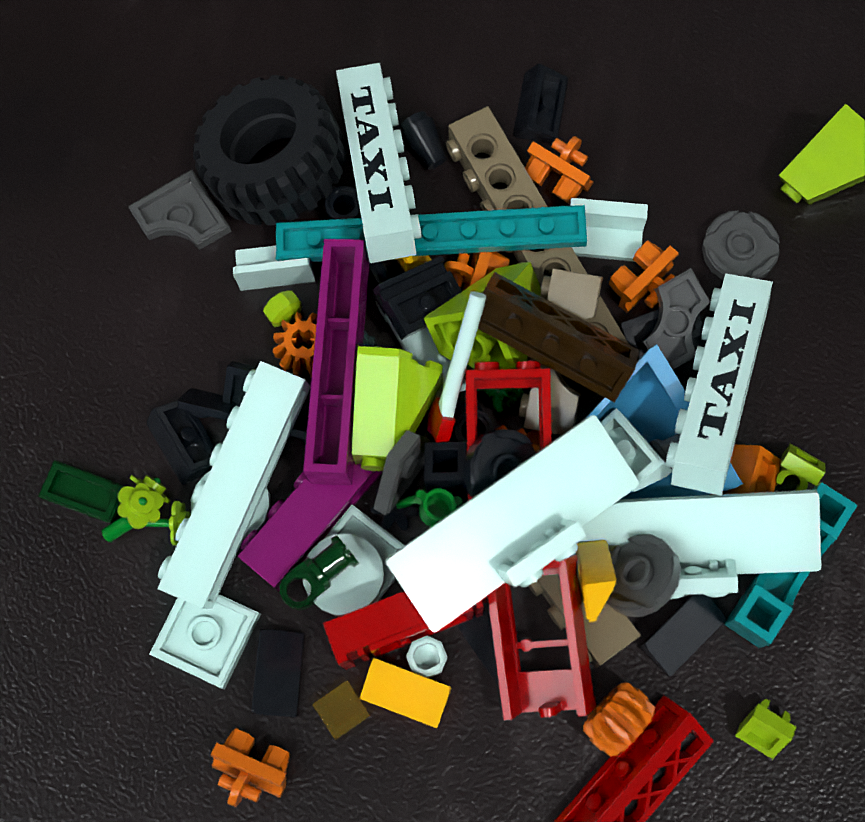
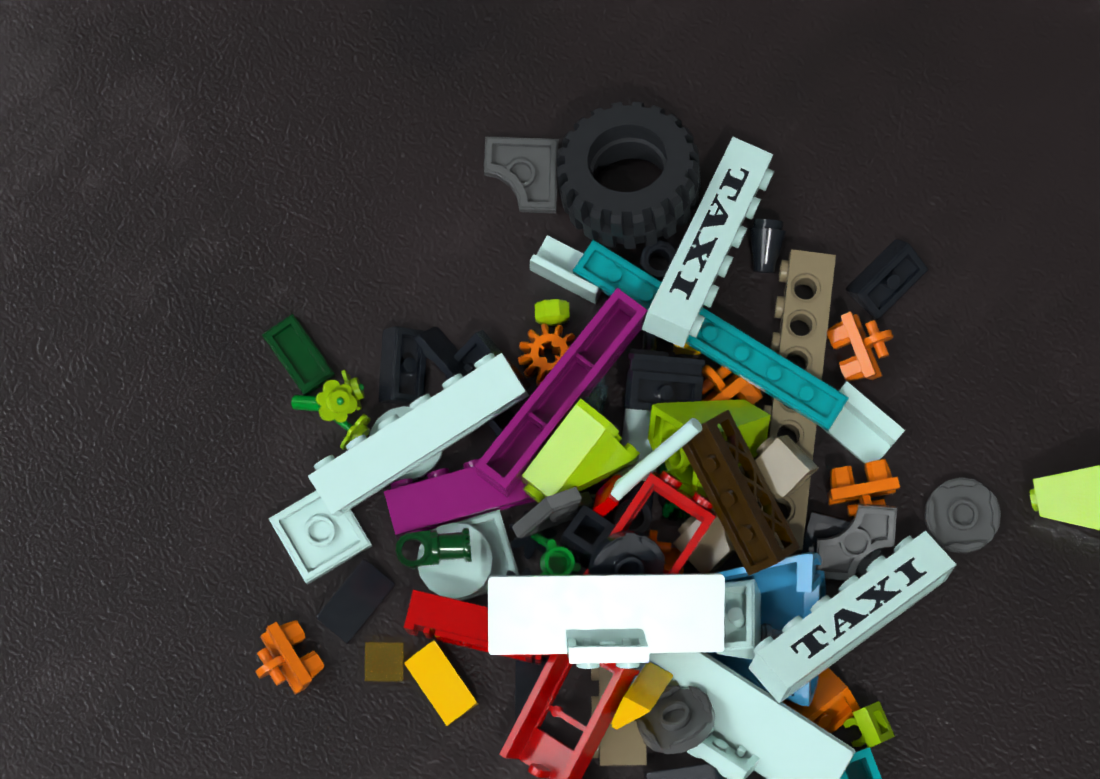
camera: 30 degrees right, 5 degrees up
(426, 657) = (475, 667): light aqua tile -> none

